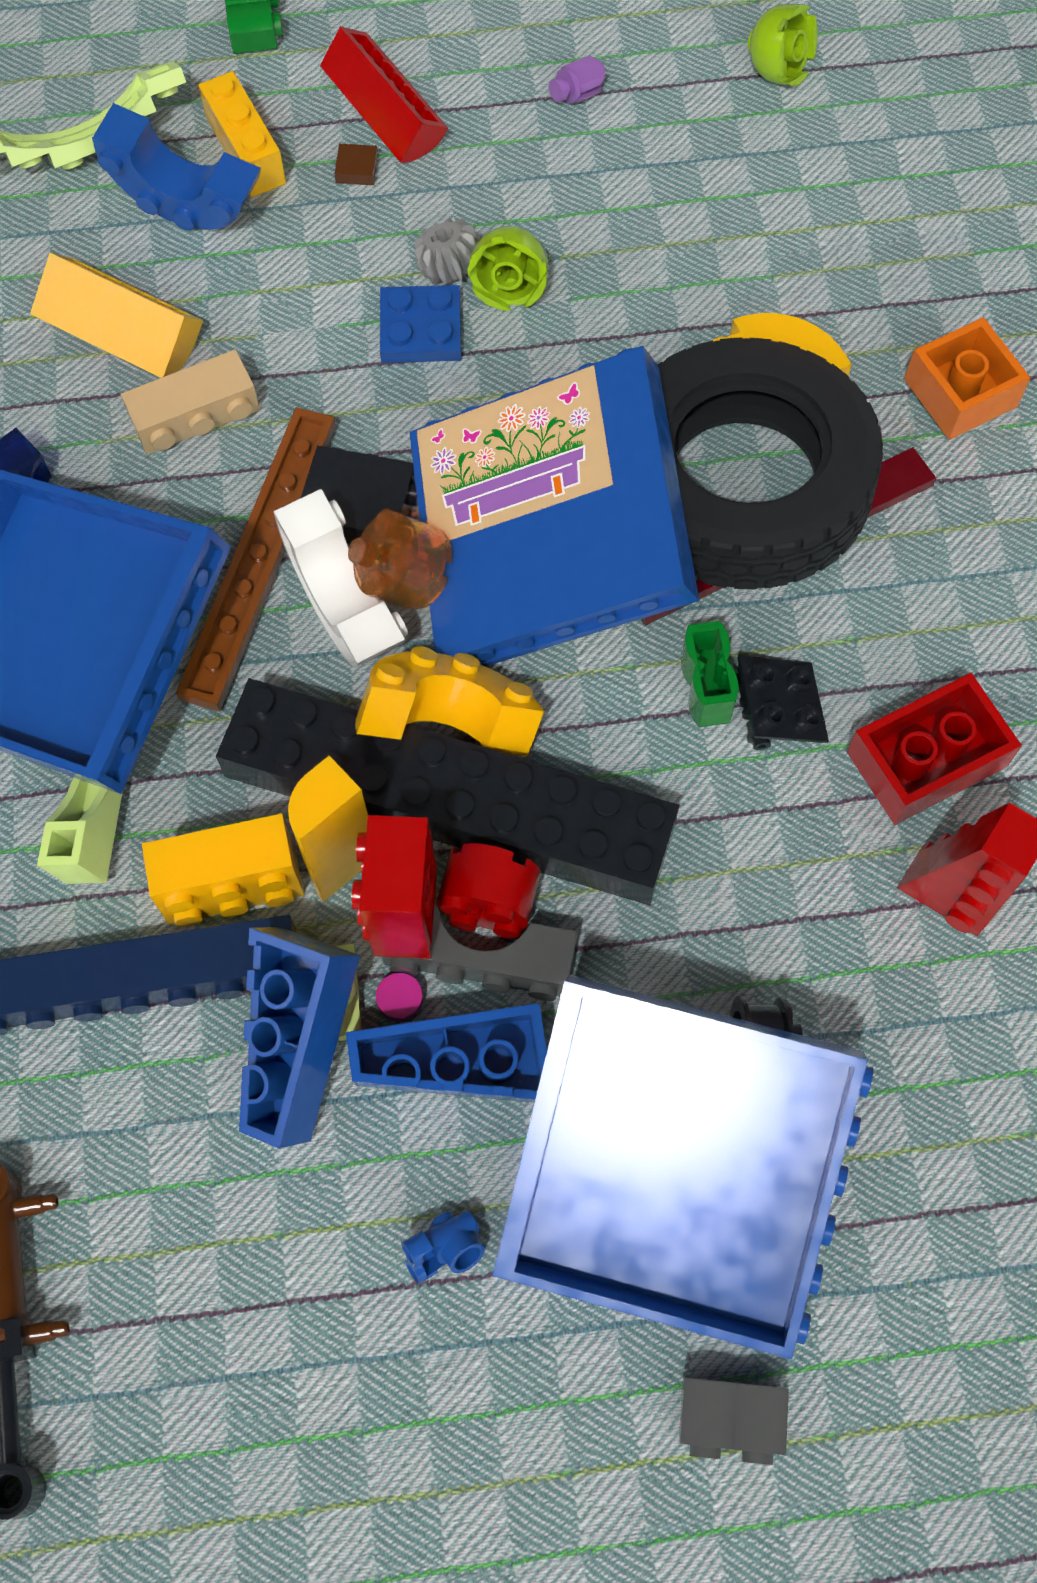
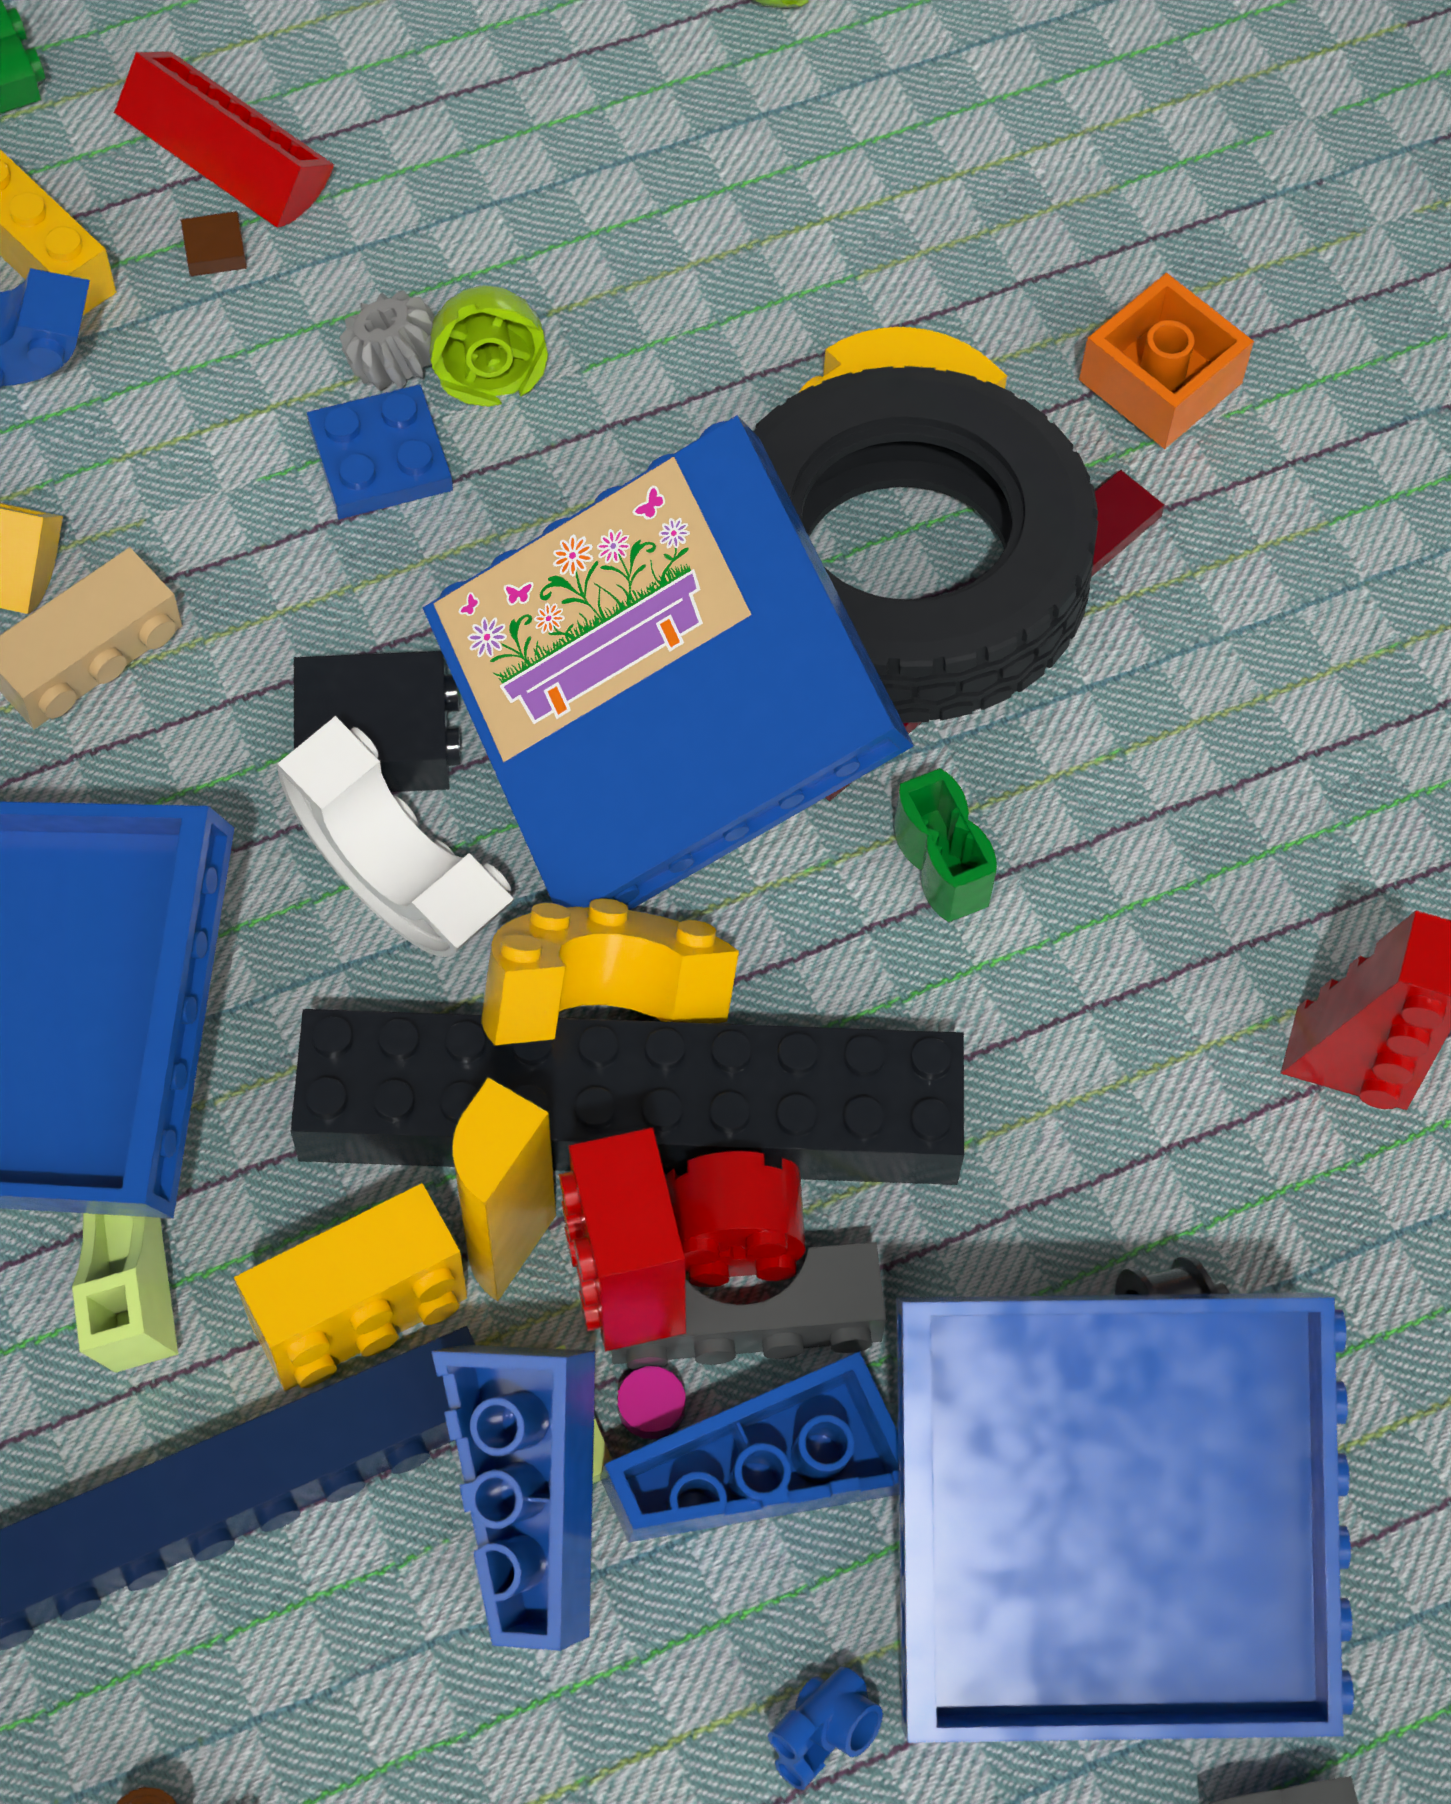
camera: 20 degrees left, 5 degrees down
(252, 566) = (257, 808): dark orange plate -> none
(401, 560) = (471, 790): clear orange brick -> none
(578, 81) = (498, 59): medium lavender arm -> none
(780, 701) = (1049, 860): black hinge -> none
(933, 748) = (1275, 871): red brick -> none

